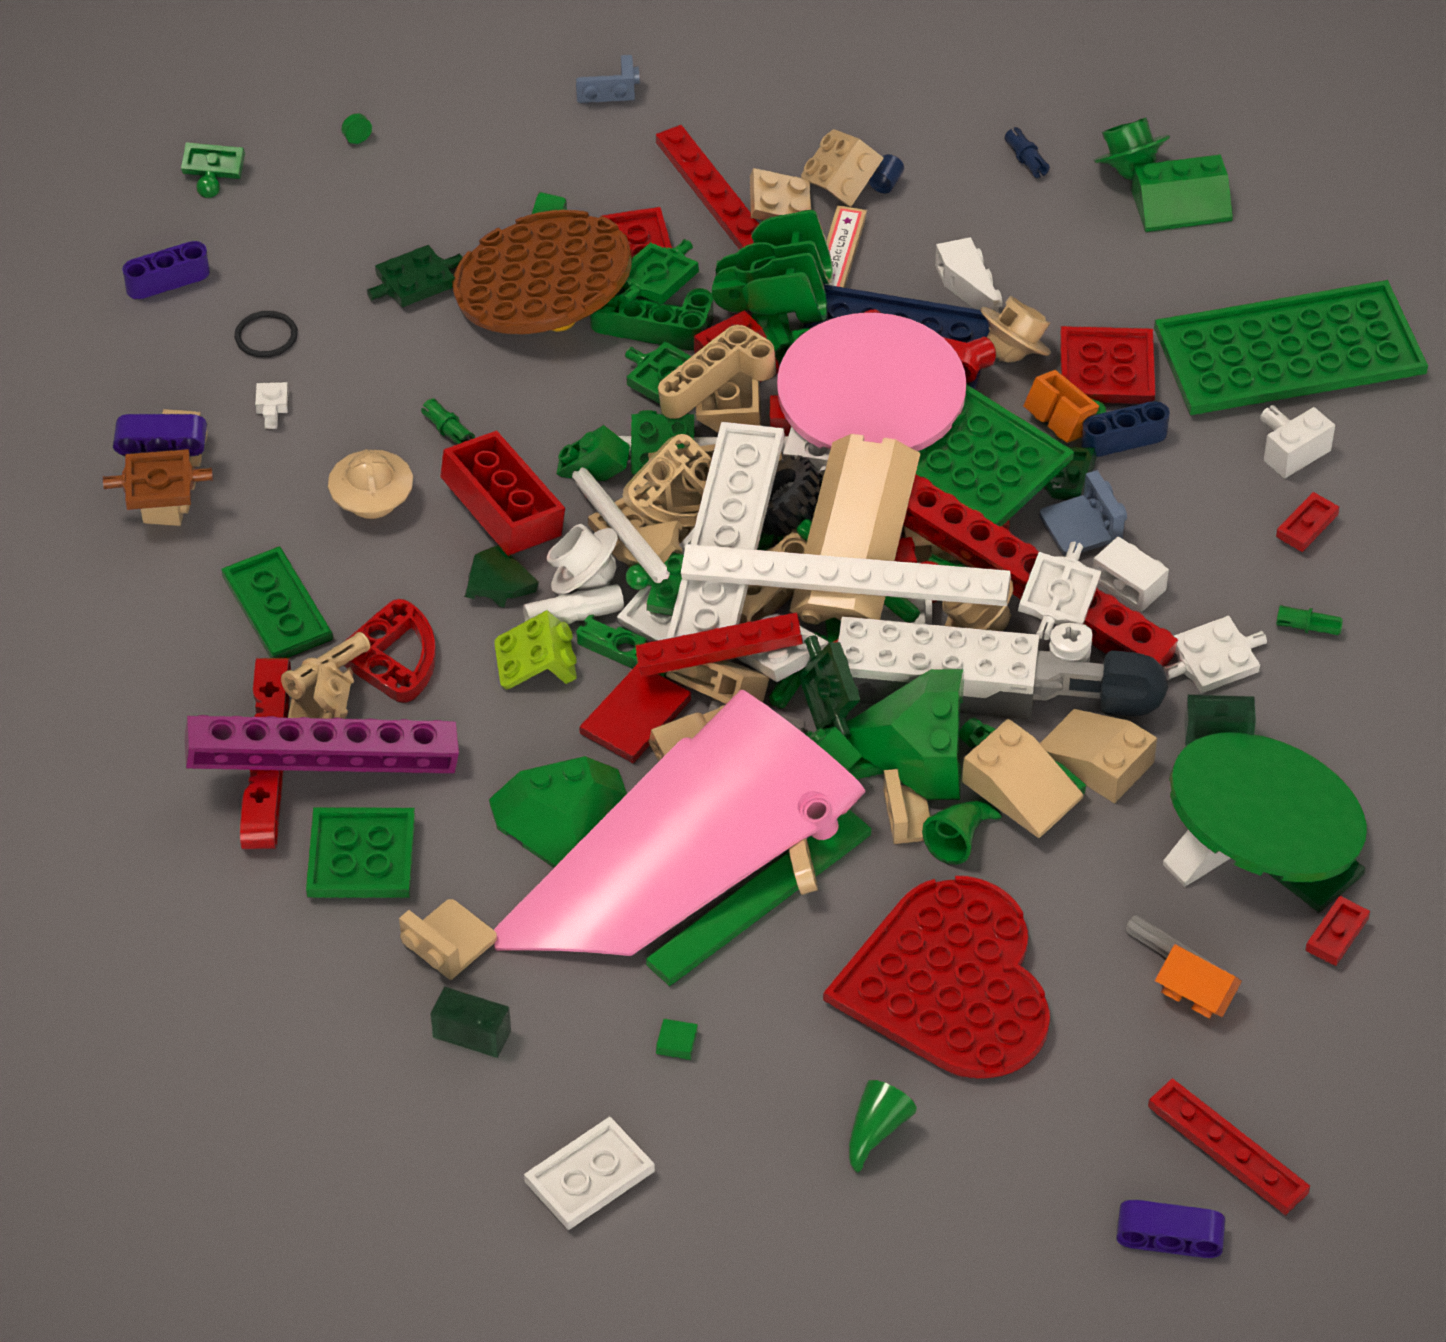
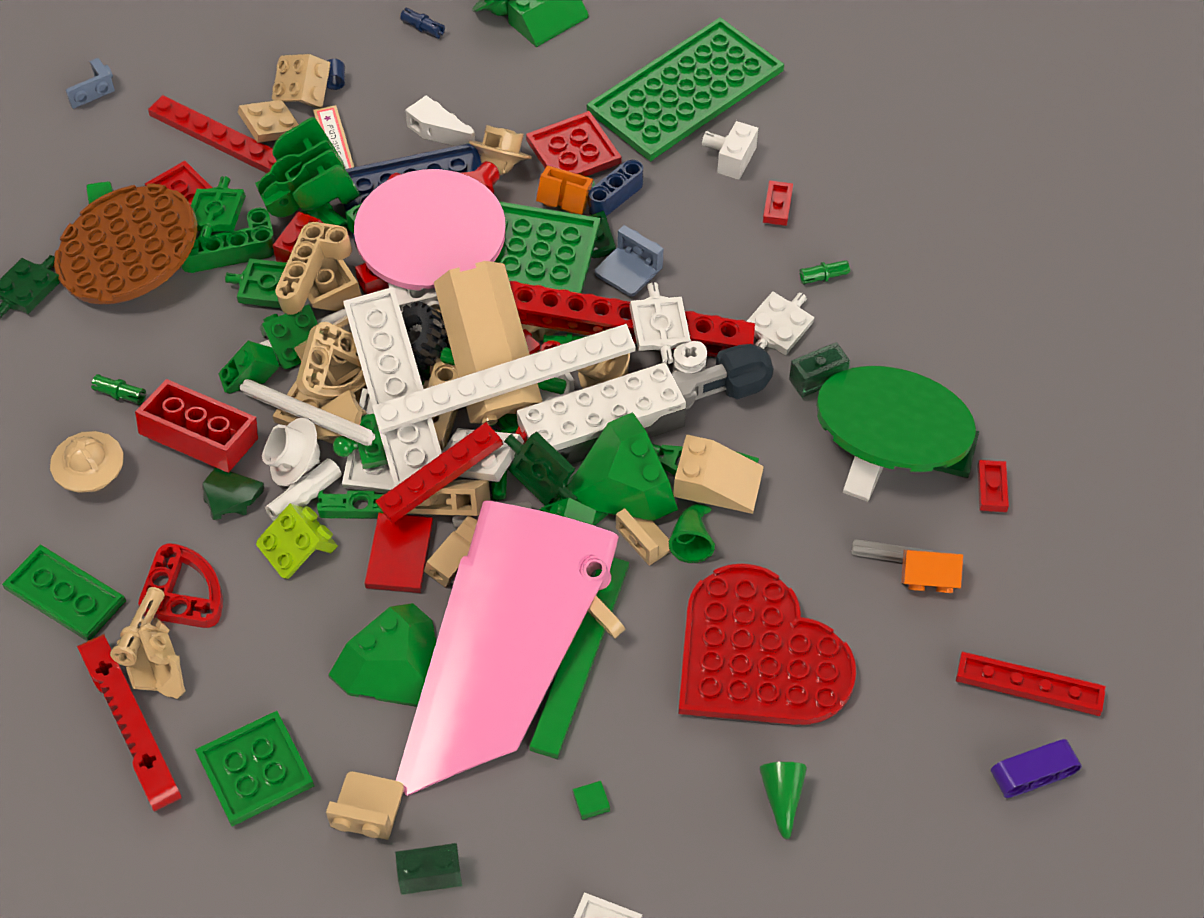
camera: 30 degrees left, 5 degrees up
(320, 744) = (193, 694): magenta brick -> none
(1102, 751) = (750, 427): tan slope -> none
(1131, 573) = (692, 286): white brick -> none

